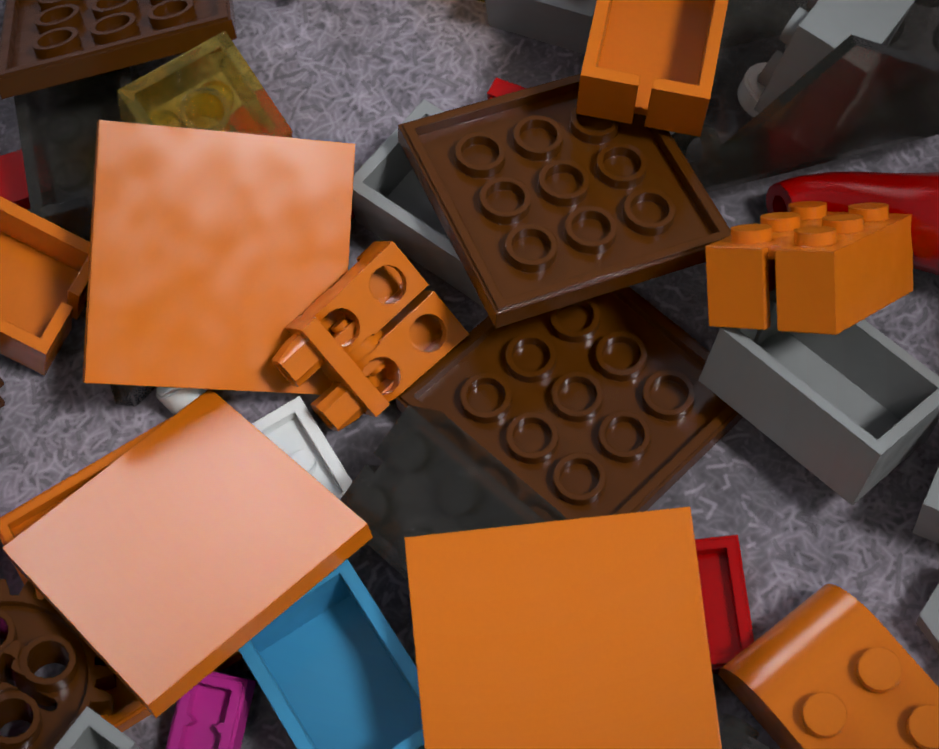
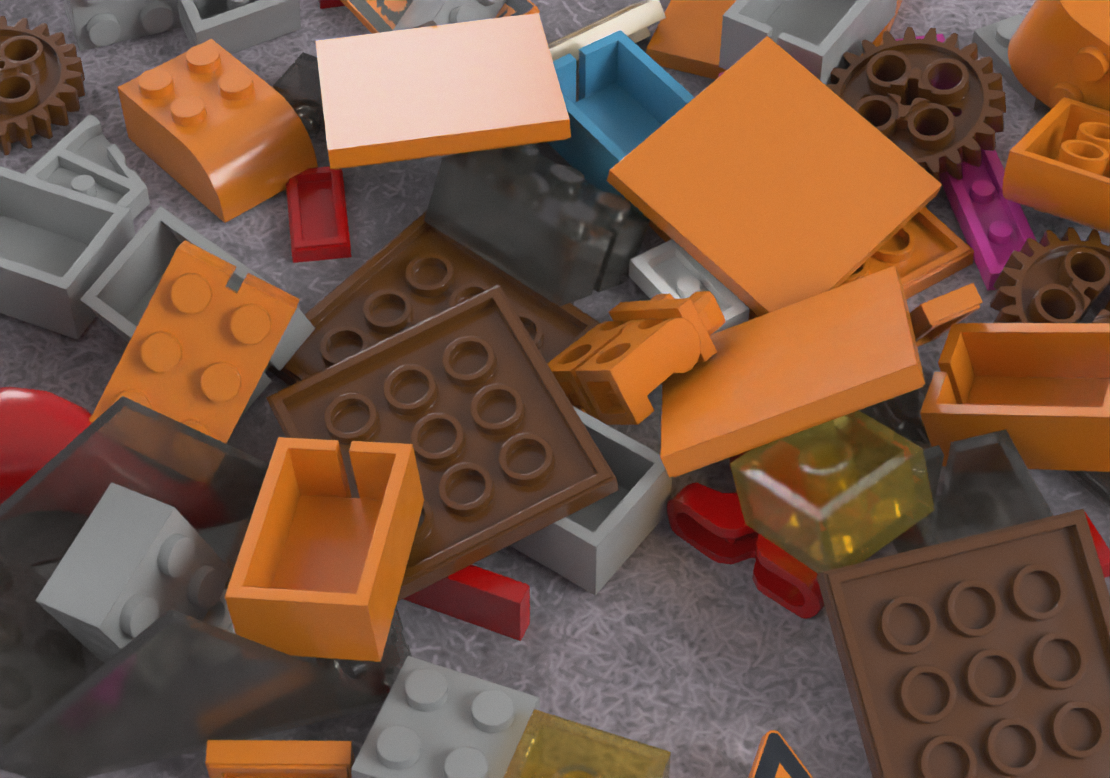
camera: 165 degrees right, 15 degrees down
(54, 366) = (936, 316): none -> orange tile

